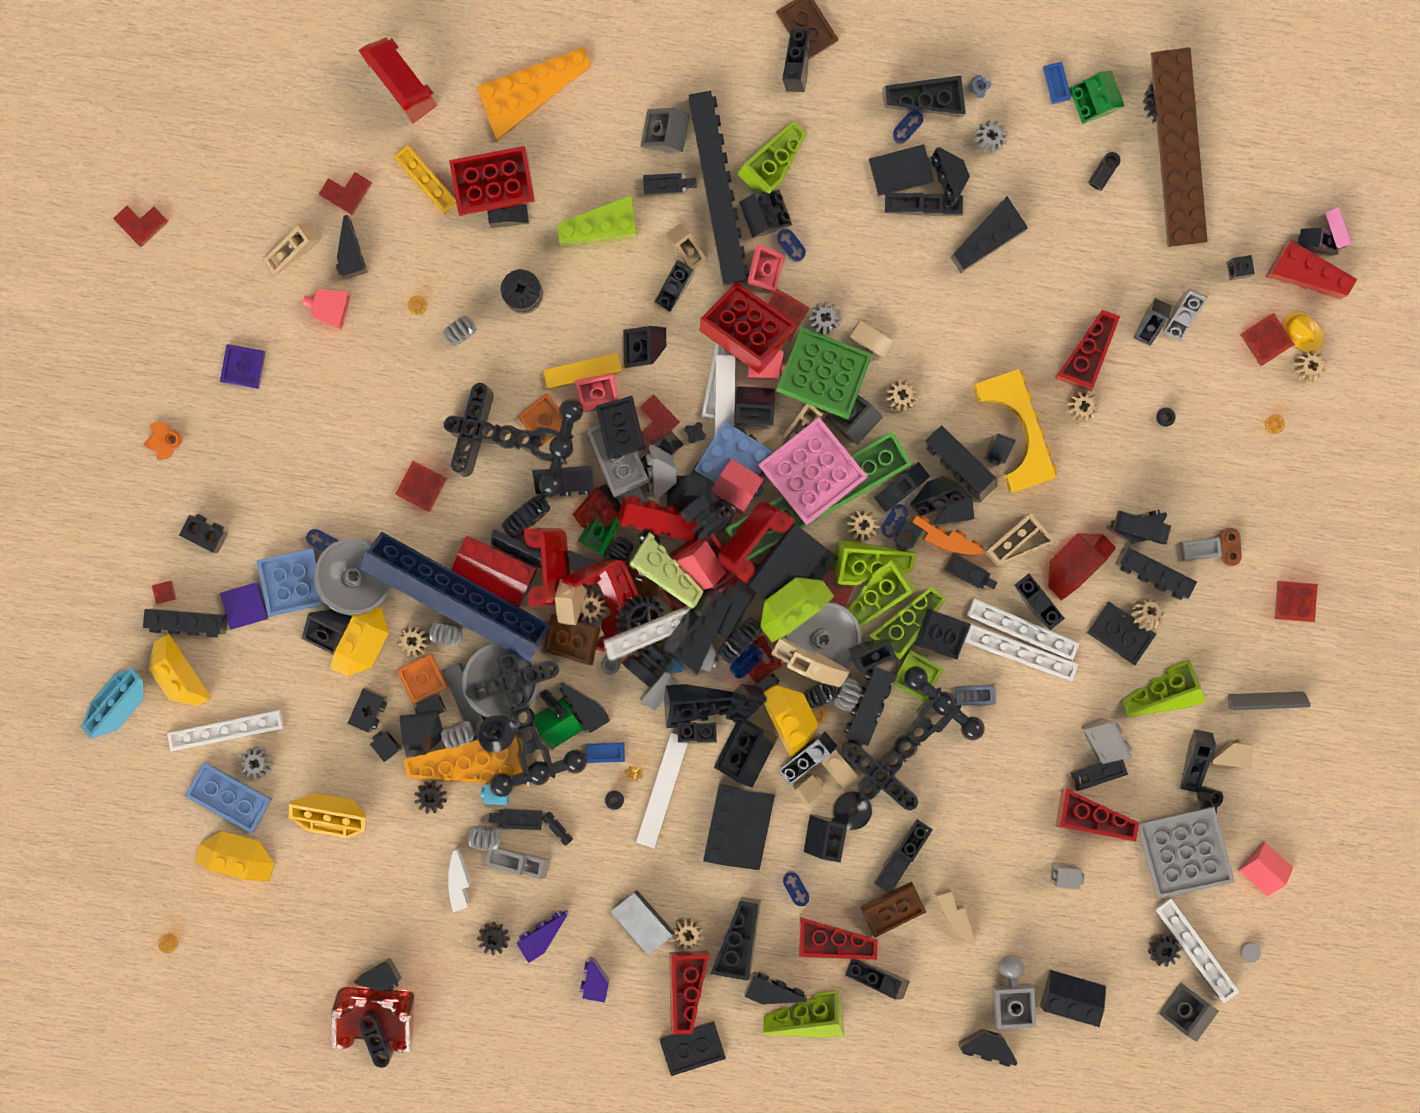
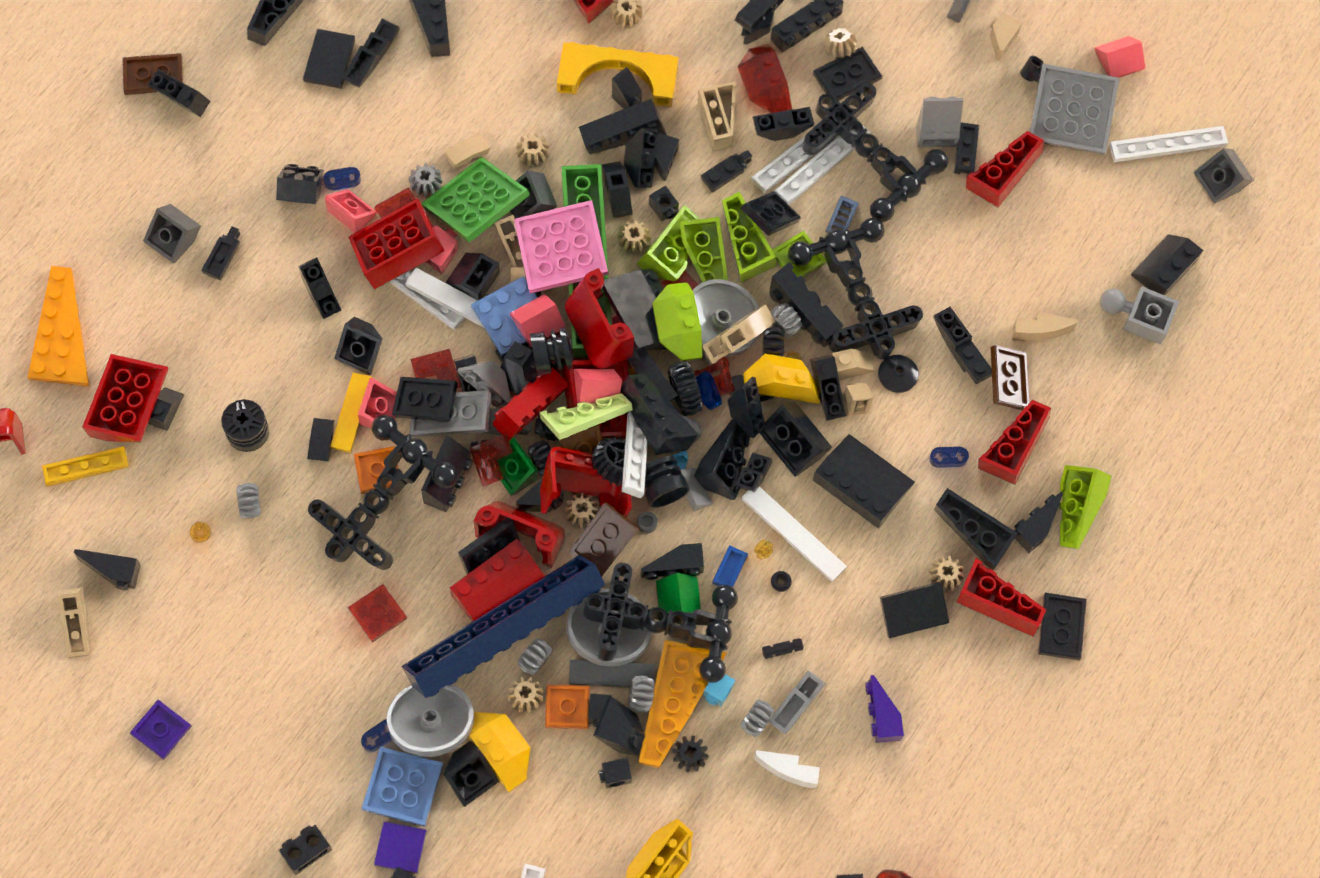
camera: 65 degrees left, 20 degrees down
(161, 440) = (187, 849): orange plate -> none
(328, 306) = (152, 614): coral torso -> none
(348, 197) = (57, 547): clear red plate -> none
(359, 715) = (560, 766): black brick -> none
(492, 945) = (871, 765): black gear -> none
(501, 739) = (659, 653): black dish -> none
(517, 819) = (754, 680): black hinge -> none
(526, 516) = (461, 521): black gear -> none
(545, 359) = (320, 439): none -> black slope
(553, 704) = (657, 589): black axle -> none
(569, 603) = (566, 521): tan slope -> none
(596, 982) = (953, 683): dark purple slope -> none
(601, 224) = (225, 326): lime wedge -> none
(686, 246) = (285, 264): tan slope -> none
(692, 437) = (471, 344): black plate -> none
(717, 187) = (252, 213): black brick -> none
(770, 164) = (257, 156): lime wedge -> none
(825, 837) = (912, 404): black slope -> none
(871, 654) = (758, 279): black slope -> none
(878, 979) = (1070, 424): black slope -> none
(898, 524) = (647, 208): clear blue beam -> none
(910, 130) = (291, 36): clear blue beam -> none
(950, 174) = (357, 17): black slope -> none
(953, 542) = (689, 172): orange slope -> none
(989, 1046) = (1180, 356): black slope -> none
(1035, 739) = (907, 185): none -> black piece
(1066, 876) = (1048, 214): light grey brick -> none
(1157, 952) = (1156, 169): black gear -> none
(1170, 692) = (920, 57): lime wedge -> none
(1197, 760) = (994, 64): black slope -> none
(1250, 952) = (1190, 103): light grey tile -> none

